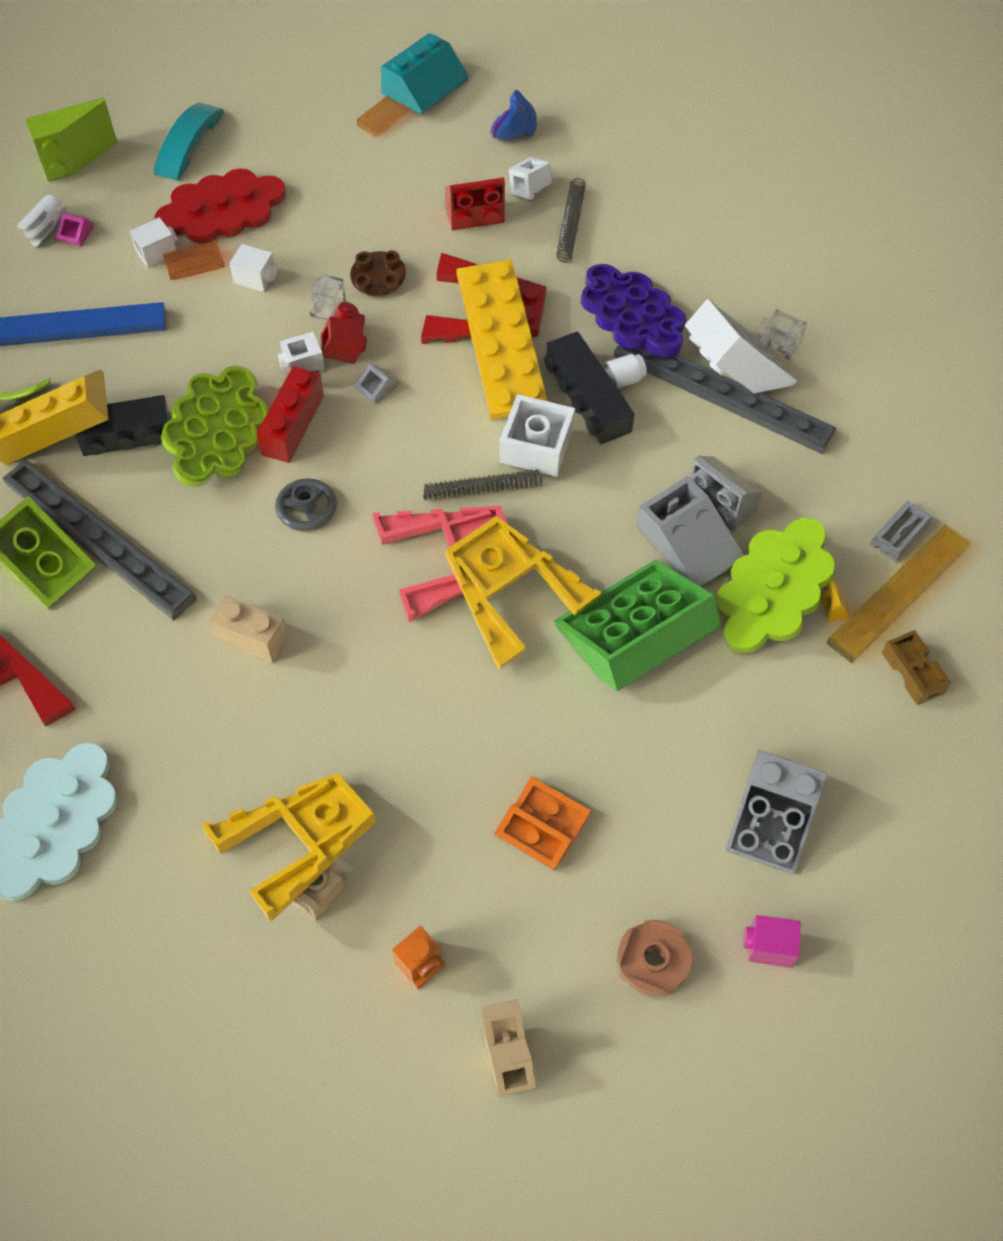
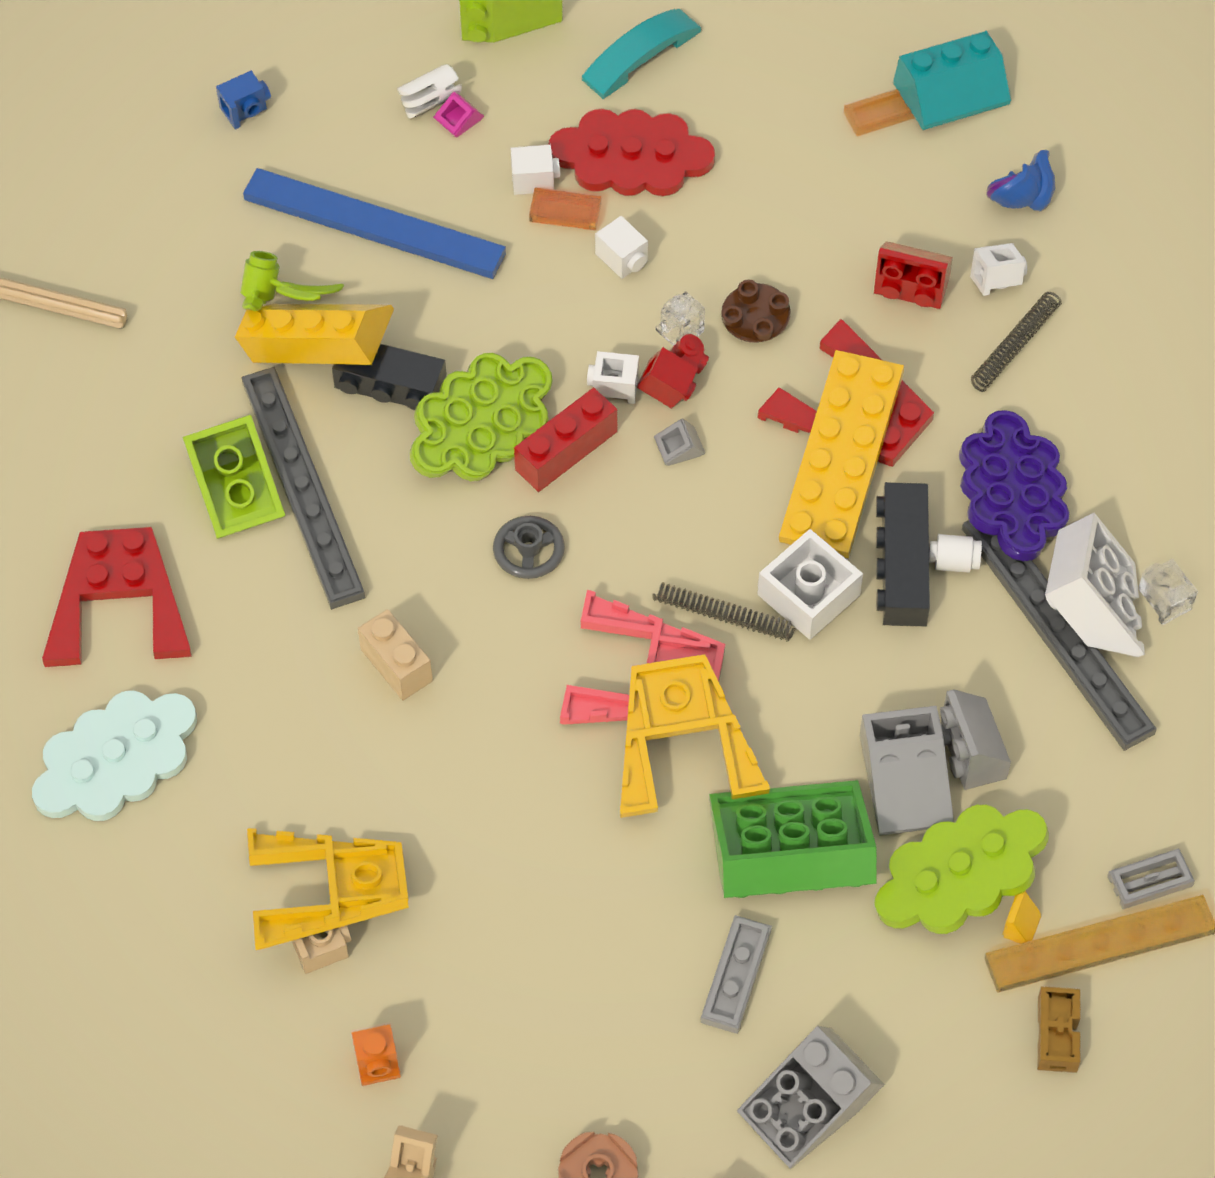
camera: 30 degrees right, 0 degrees up
(543, 823) = (571, 992): orange slope -> none
(659, 746) = (736, 974): none -> light grey tile

